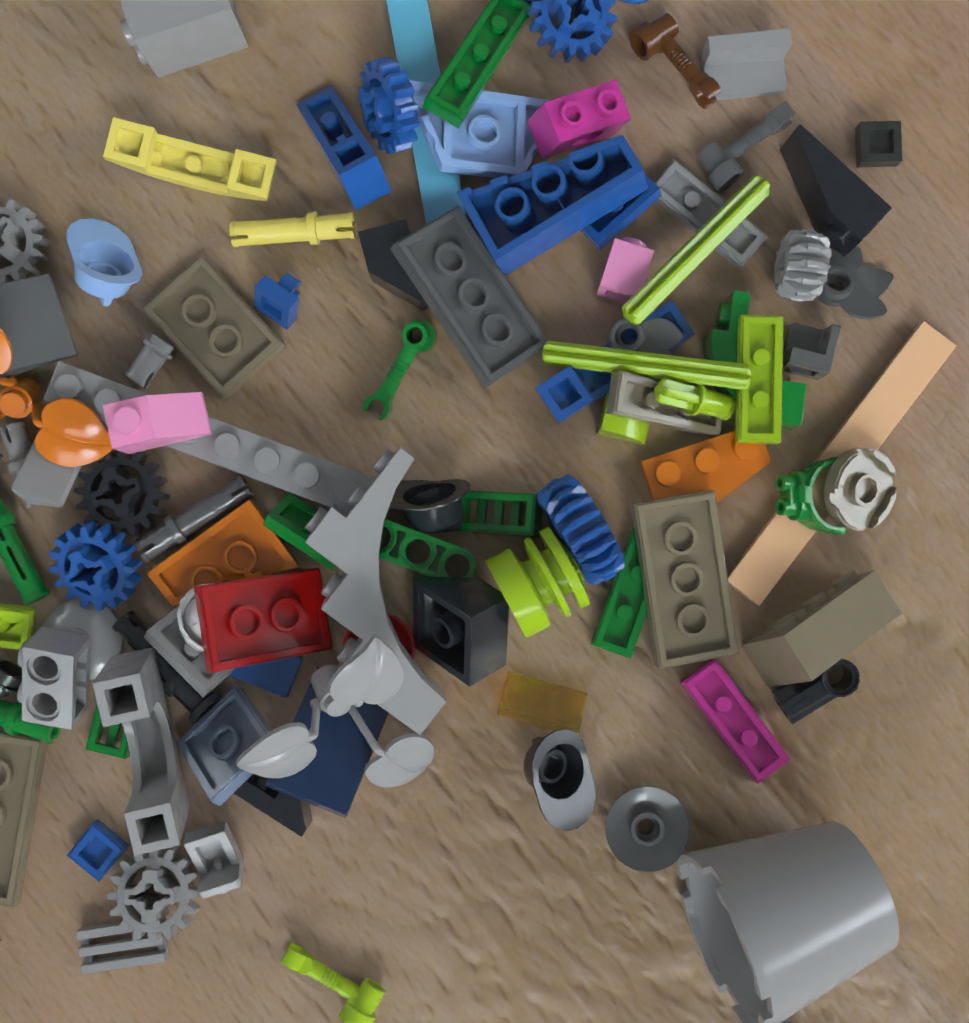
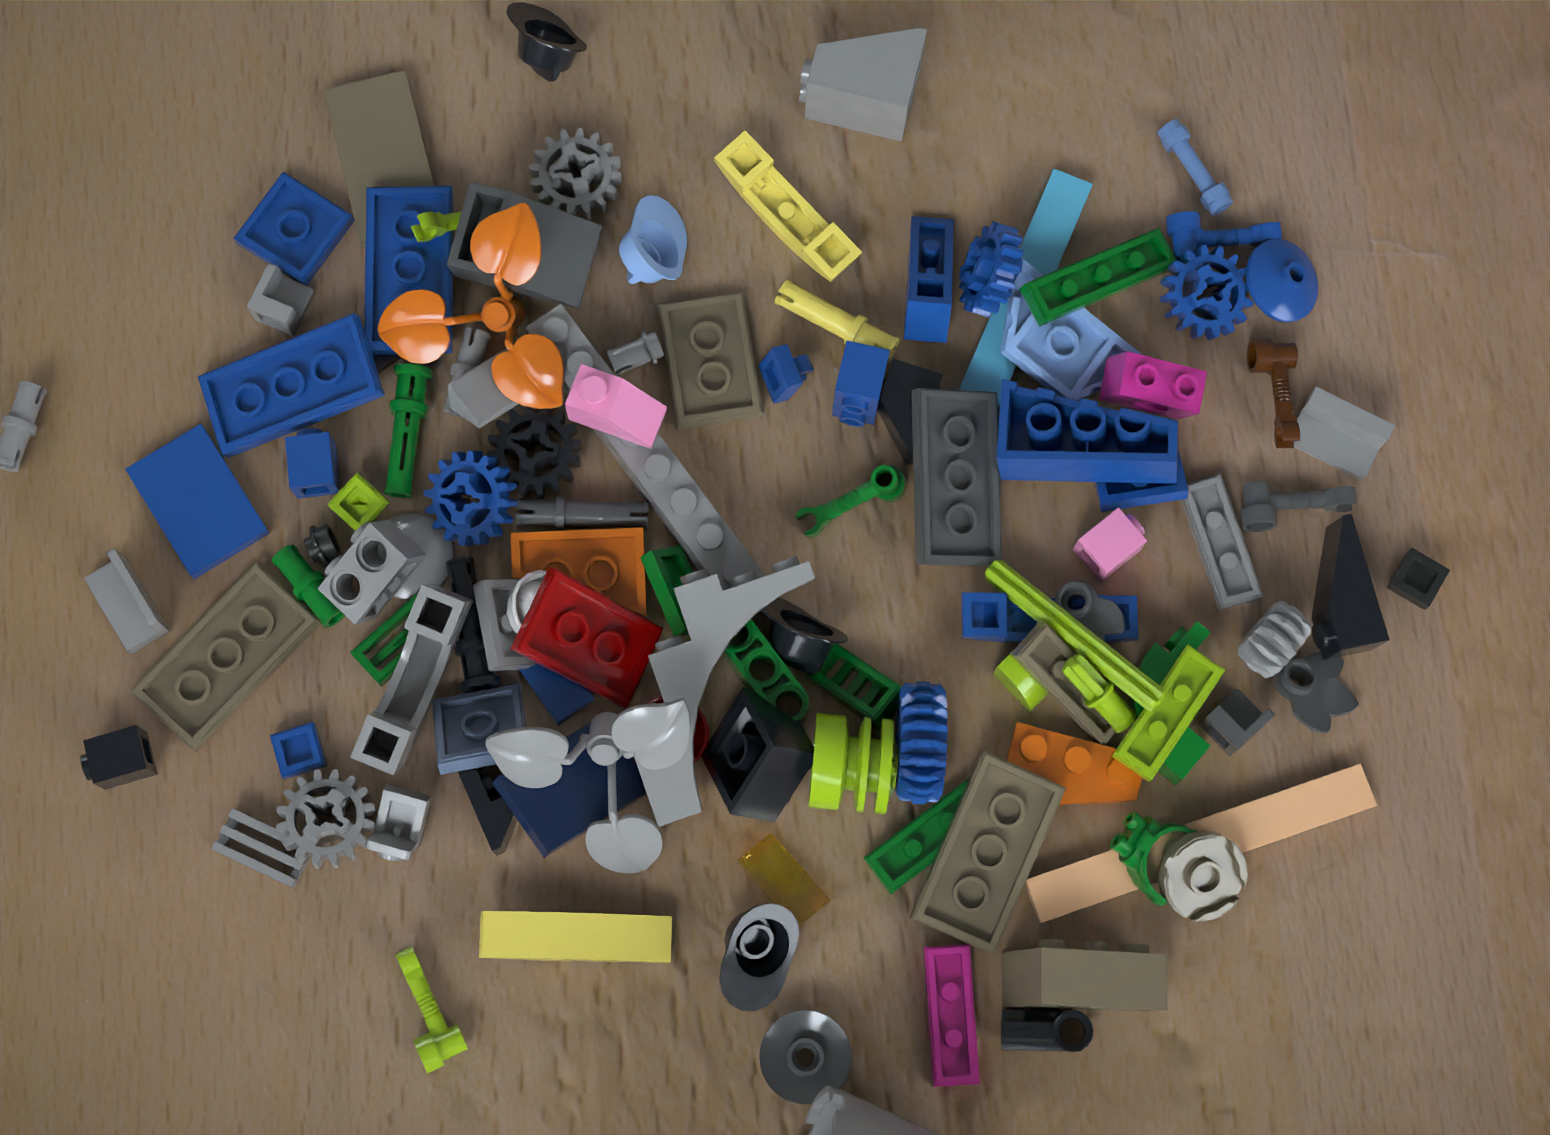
camera: 30 degrees right, 10 degrees down
(344, 269) = (859, 384): none -> blue brick
(410, 855) = (575, 936): none -> light yellow slope
(695, 250) = (1186, 564): lime axle -> none

